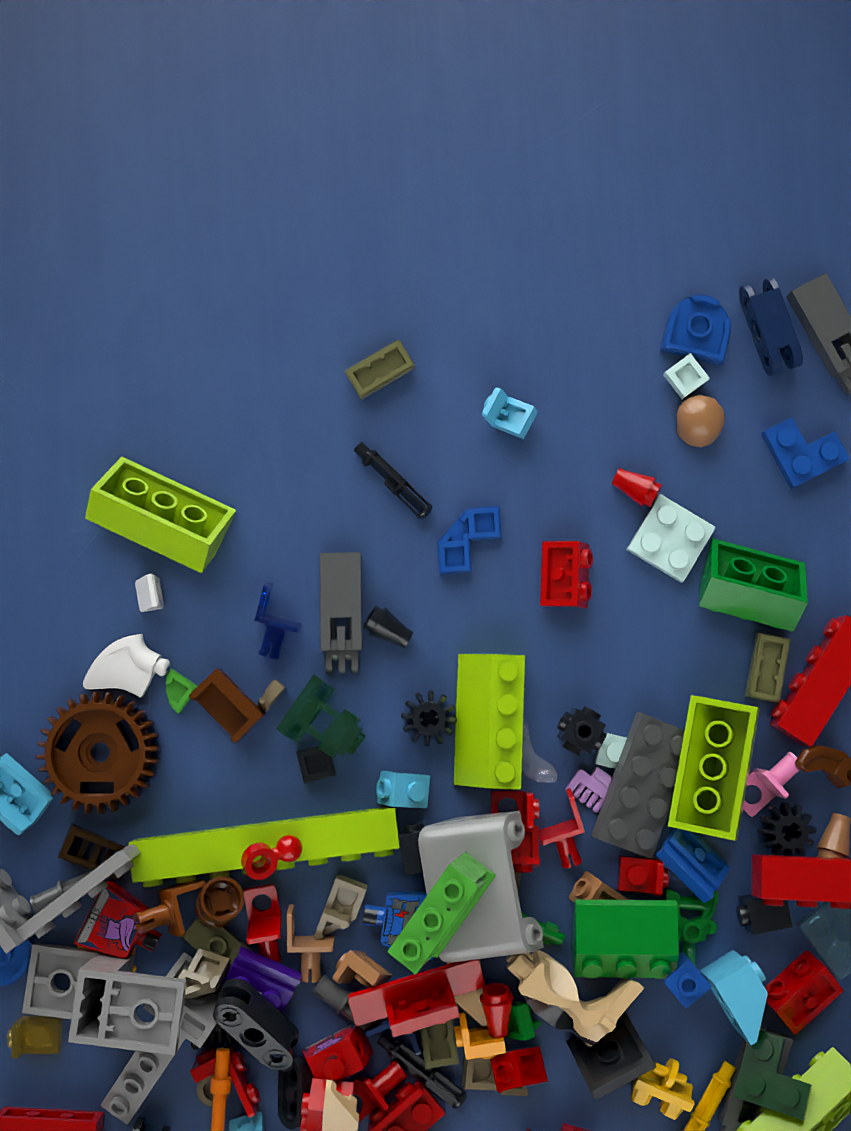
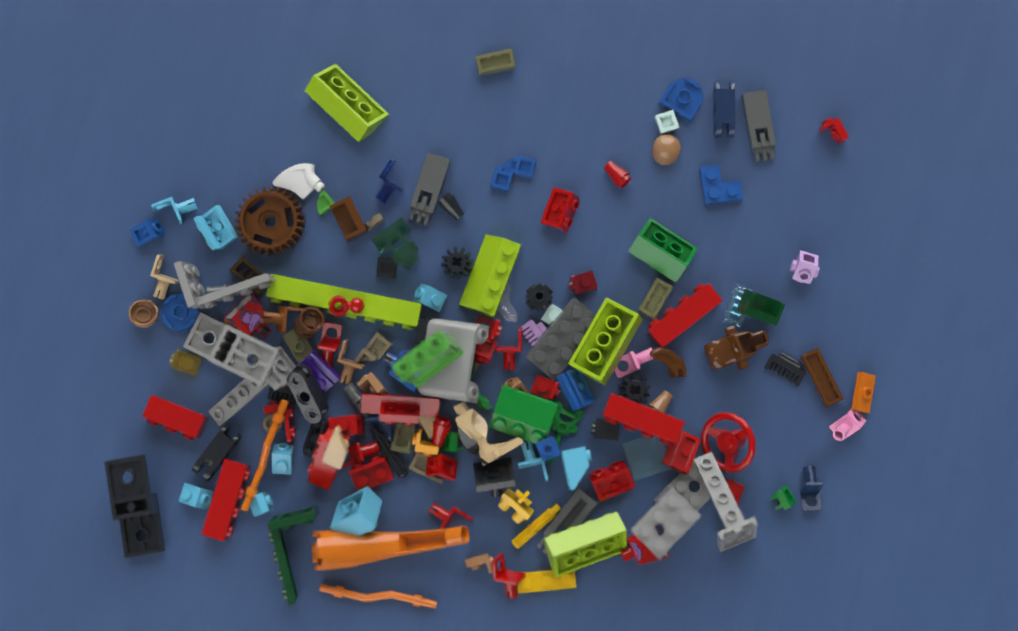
camera: 20 degrees right, 0 degrees up
(149, 593) = (325, 144): white slope -> none
(204, 973) = (289, 357): dark tan slope -> none
(394, 481) = (482, 126): black piece -> none
(508, 413) = (559, 110): medium azure bracket -> none
(642, 681) = (582, 283): none -> dark red bracket
(660, 1004) = (531, 460): none -> medium azure bracket
(671, 538) = (626, 209): light aqua plate -> none
(761, 1083) = (571, 514): dark green plate -> none

